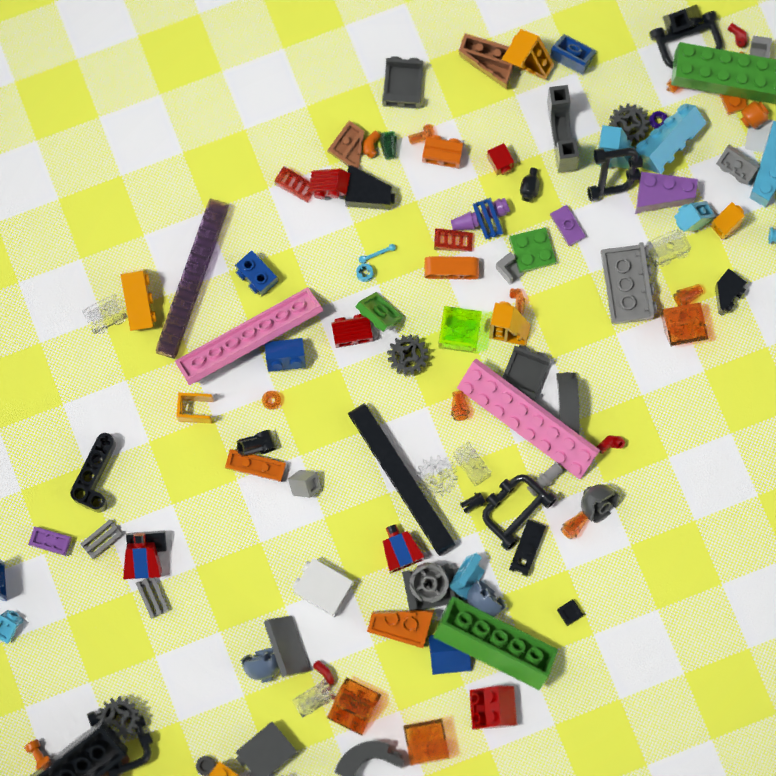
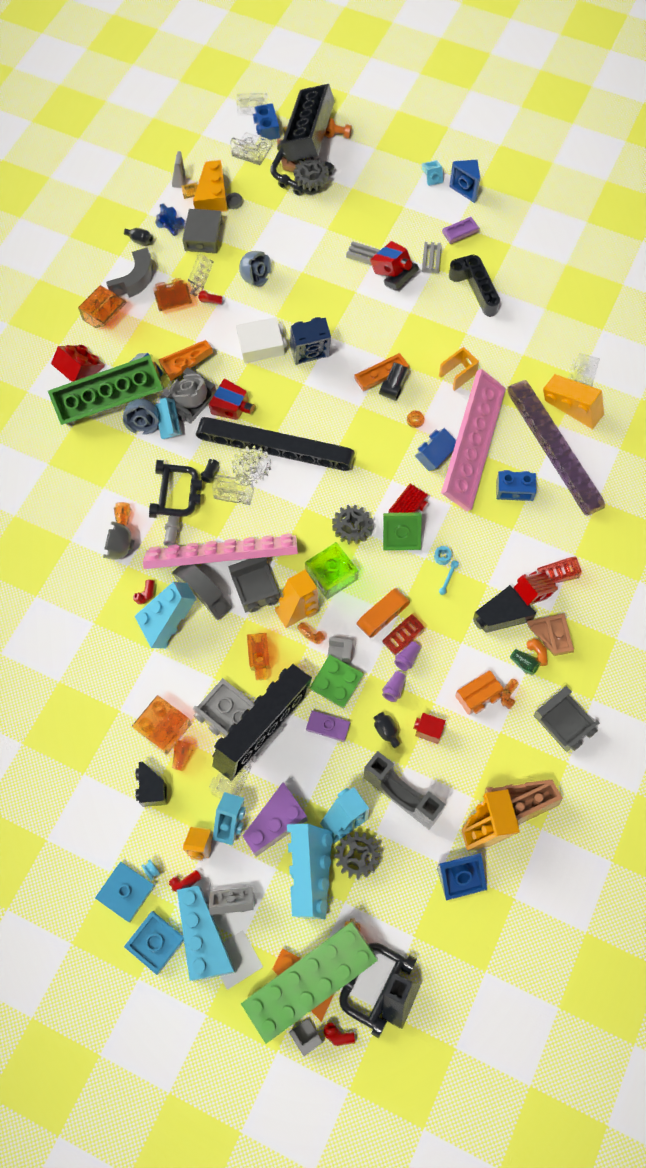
camera: 135 degrees right, 10 degrees down
(287, 646) = (247, 286): dark grey tile -> none
(293, 532) = (310, 340): none -> dark blue piece
(304, 483) = (337, 388): light grey panel -> none
(459, 406) = (280, 522): clear orange cone -> none
(493, 233) = (393, 668): blue tile -> none
(527, 547) = (144, 476): black plate -> none
(570, 314) = (259, 647): none -> clear orange torso
(570, 612) = (76, 461): black tile -> none
(603, 157) = (331, 775): black bar -> none
(614, 403) = (164, 612): none -> medium azure wedge
(616, 254) = (260, 721): none -> black brick
(655, 115) = (340, 878): dark purple plate -> none
(754, 115) = (257, 966): orange head -> none
(759, 207) = (187, 882): none -> red arm

